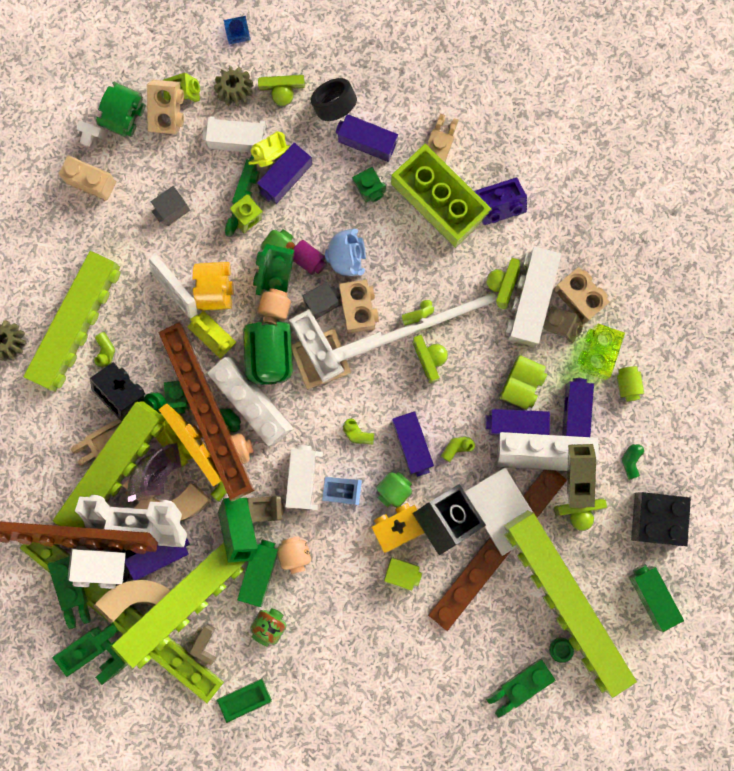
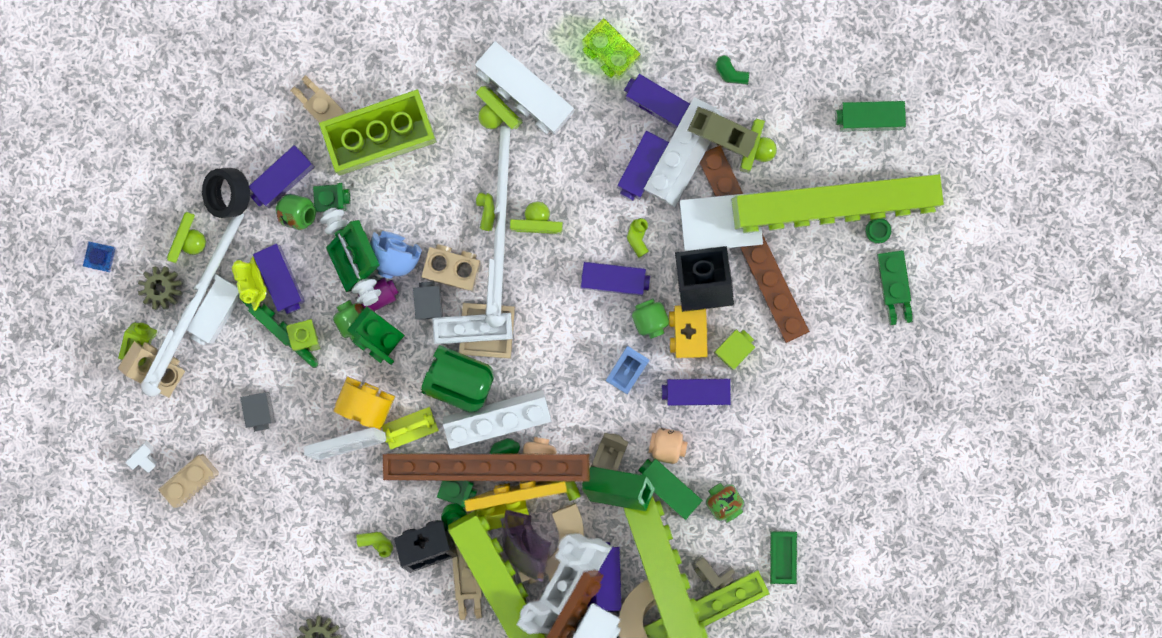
camera: 60 degrees left, 5 degrees up
(73, 321) = (331, 560): lime brick -> none
(119, 109) = (132, 415): green brick -> none
(194, 110) = (173, 339): none -> white bar
(274, 306) = (412, 352): light nougat head -> none
(301, 477) = (596, 403): white brick -> none
(329, 220) = (351, 255): none -> green plate
(344, 161) = (295, 211): none -> bright green head
(350, 558) = (697, 392): none -> dark purple brick
(354, 433) = (577, 331): lime arm -> none
(504, 199) = (410, 71): dark purple bracket -> none
(522, 383) = (605, 142): lime brick -> none
(563, 324) = (565, 72): dark tan bracket -> none
(577, 298) = (547, 47): tan brick -> none
(630, 383) = (655, 36): lime brick -> none
(661, 519) = (800, 74): black brick -> none

